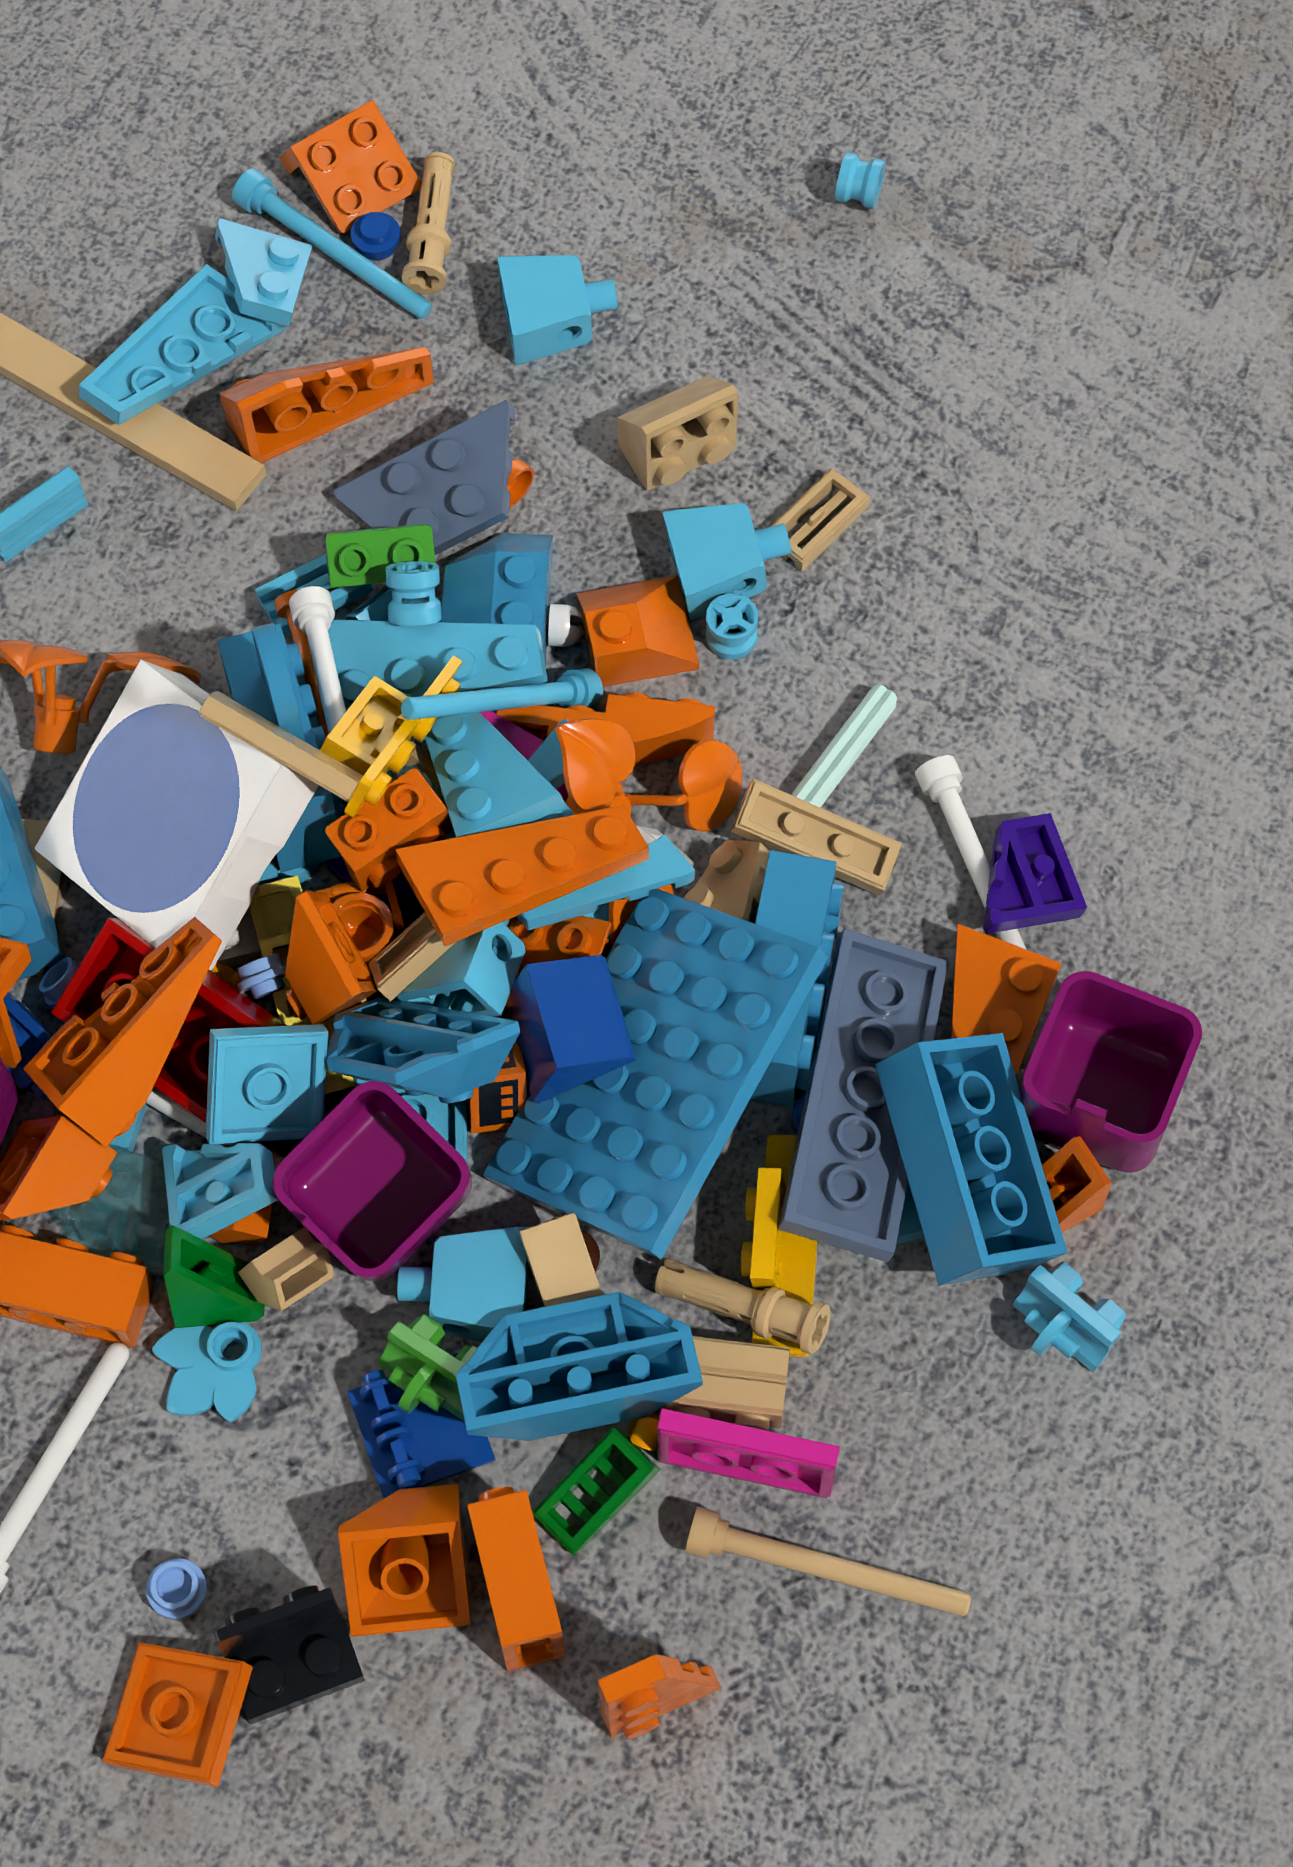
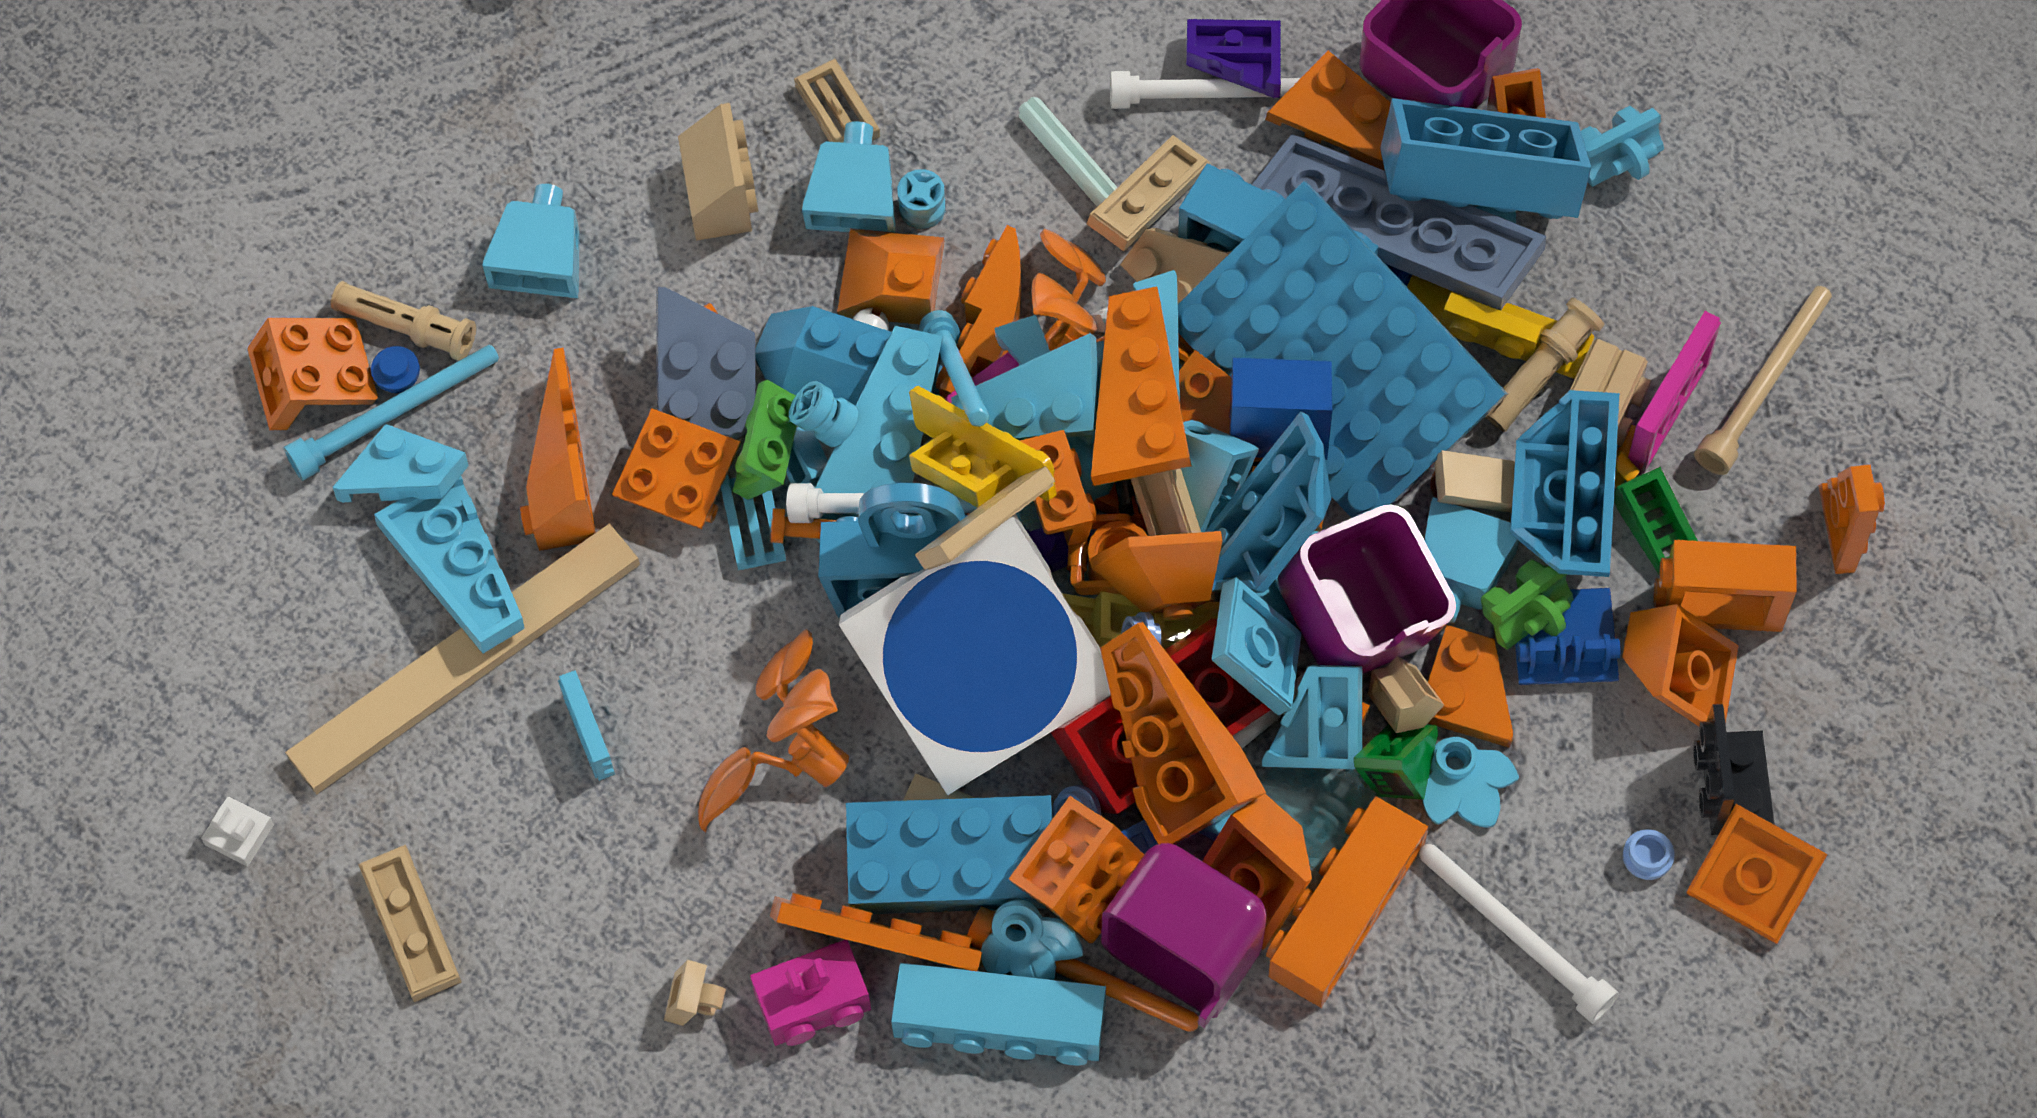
camera: 70 degrees left, 0 degrees up
(328, 1338) = (1470, 687): none -> orange wing
(329, 496) = (677, 469): none -> orange hinge

